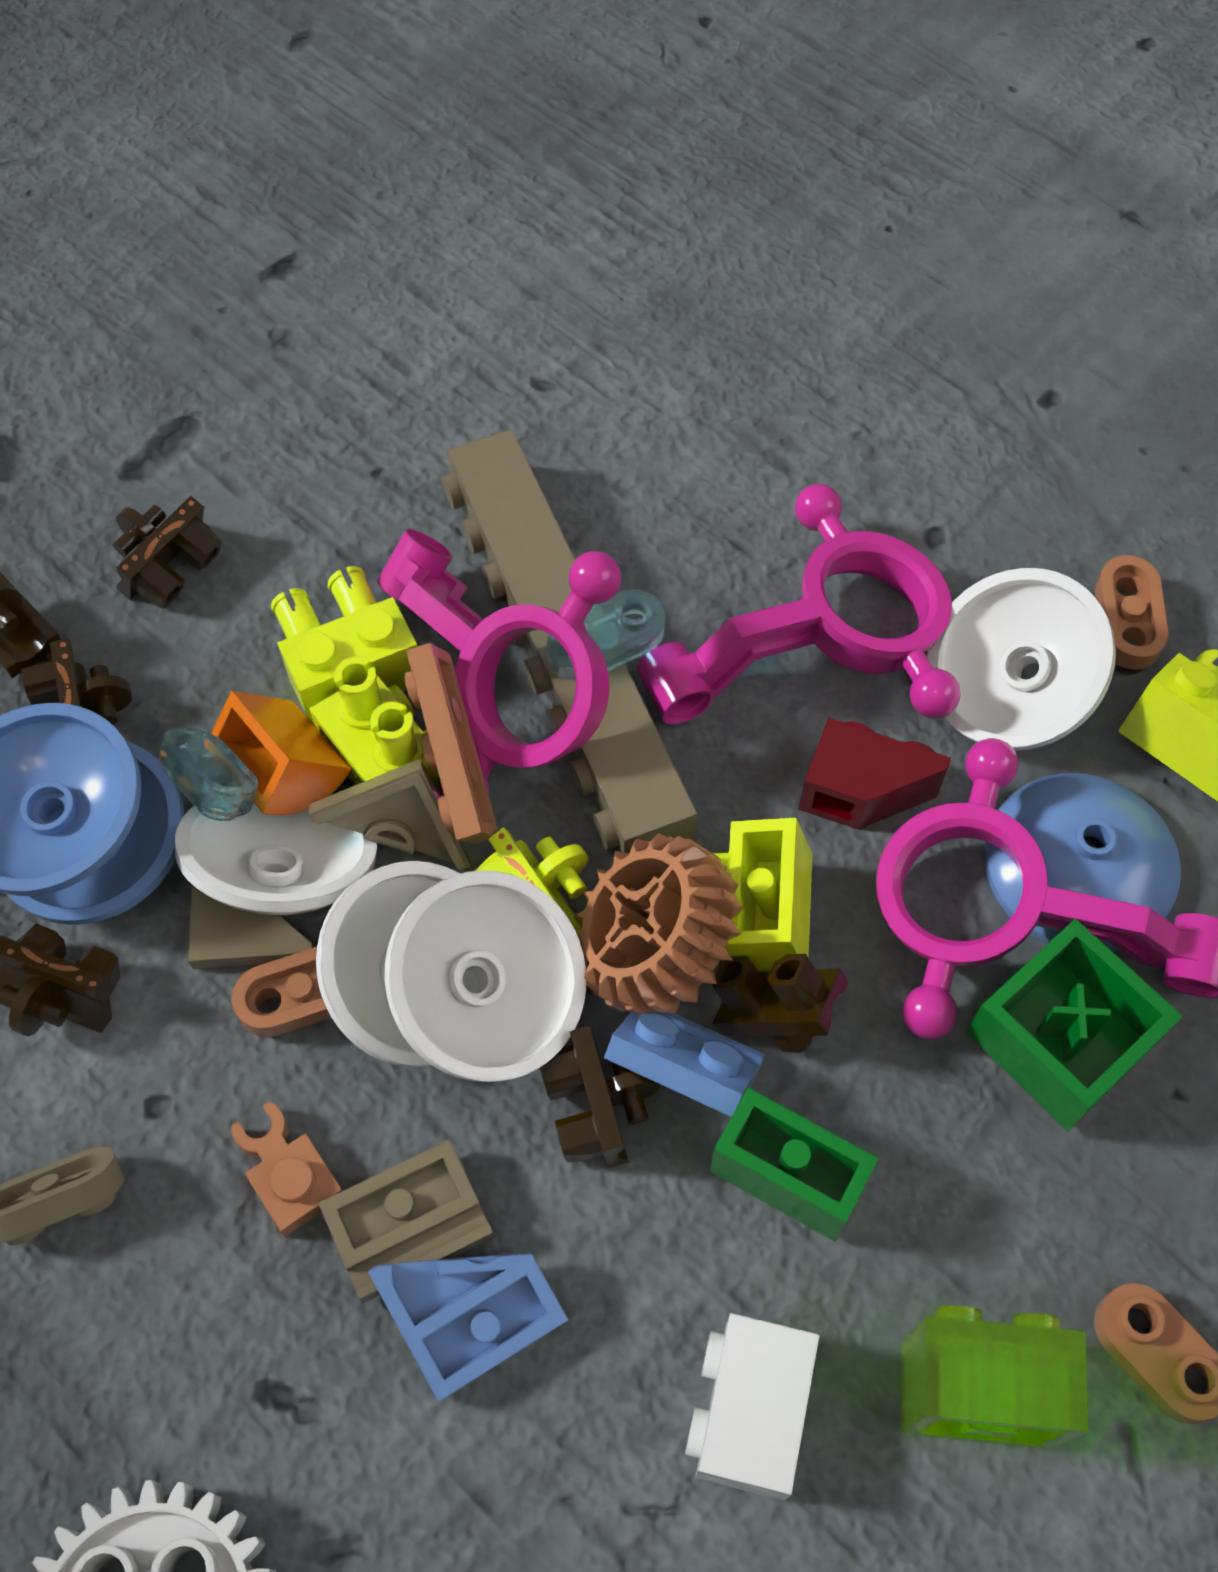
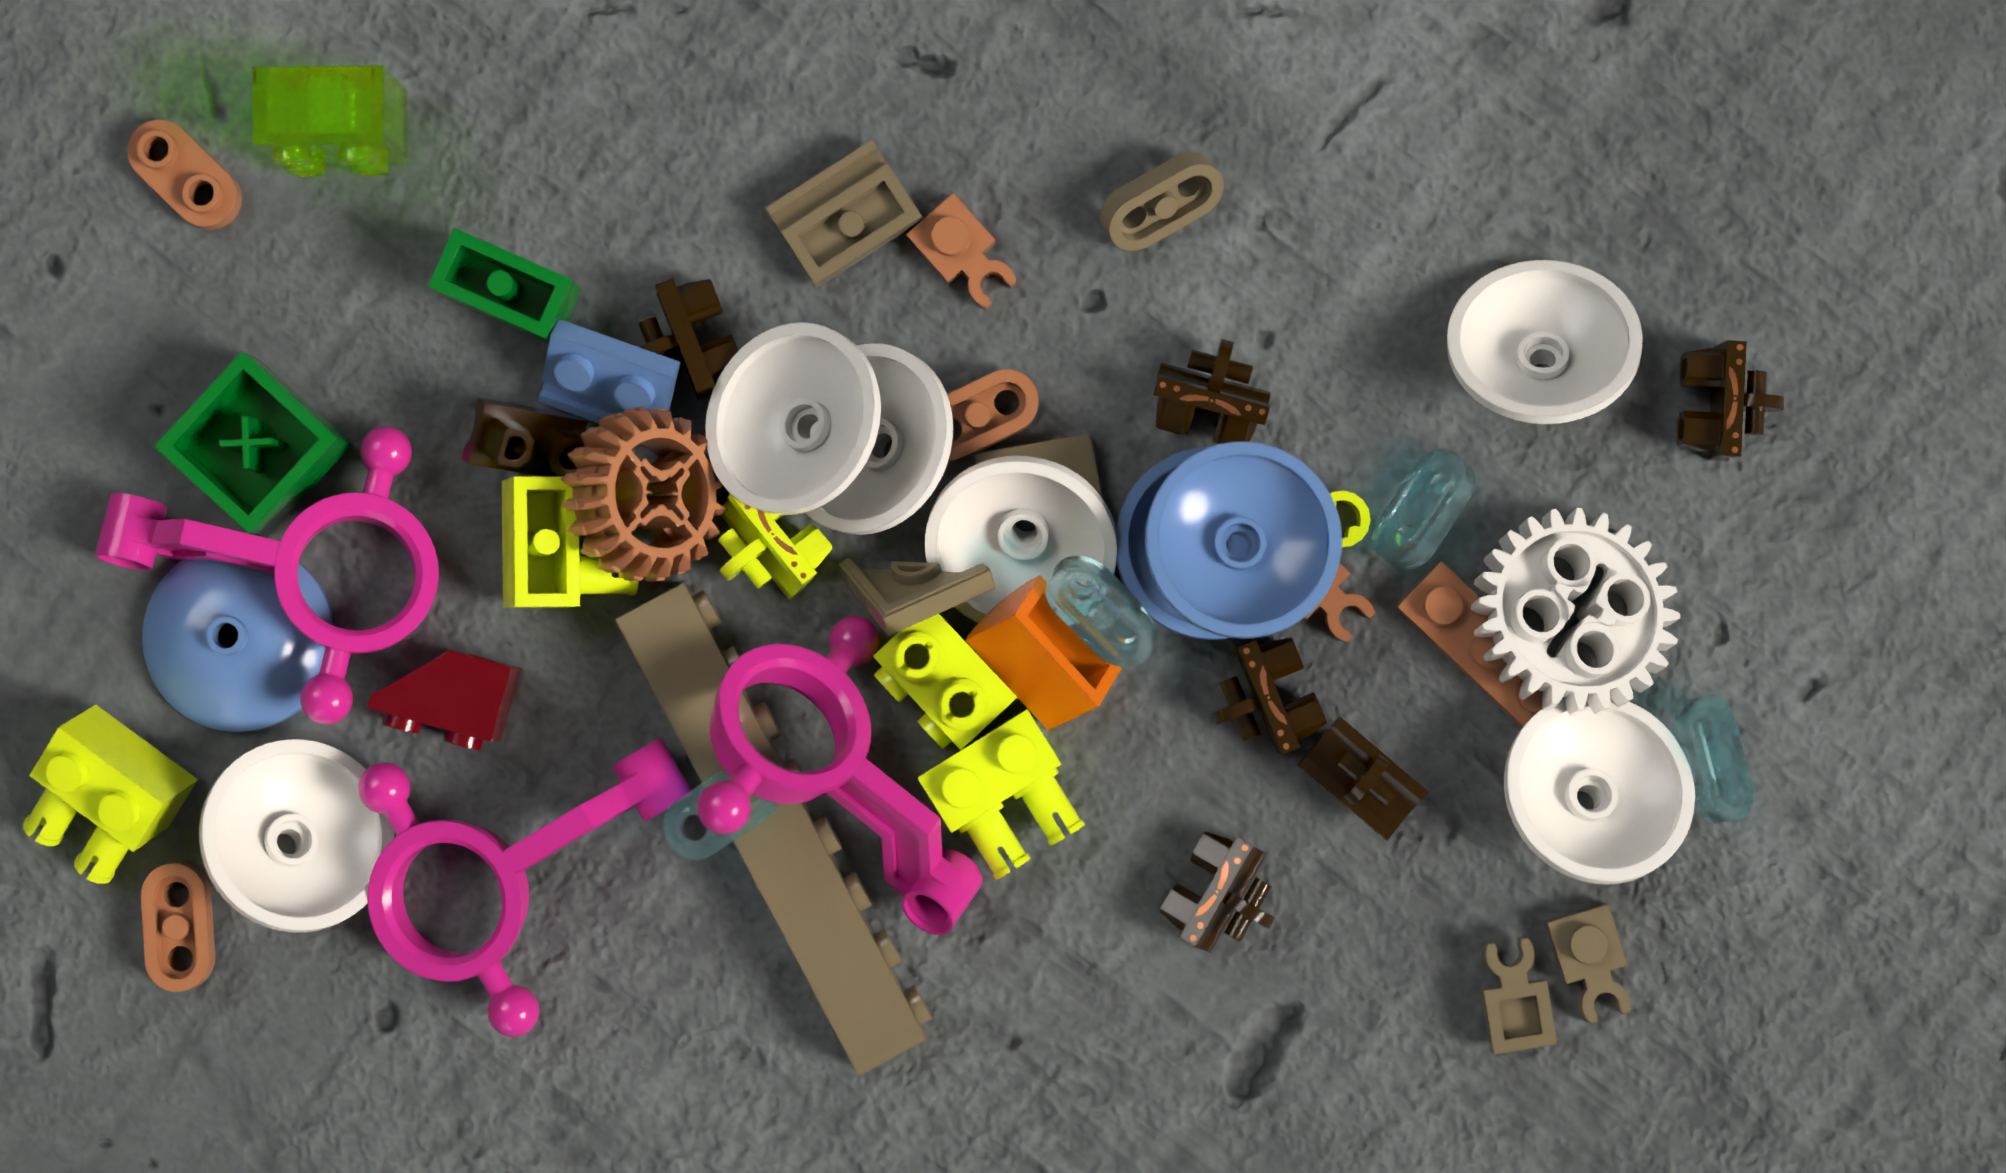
camera: 170 degrees right, 25 degrees up
(450, 744) = (861, 655): nougat plate -> none
(467, 1312) = (777, 139): medium blue wing -> none
(755, 1406) = (528, 89): white brick -> none

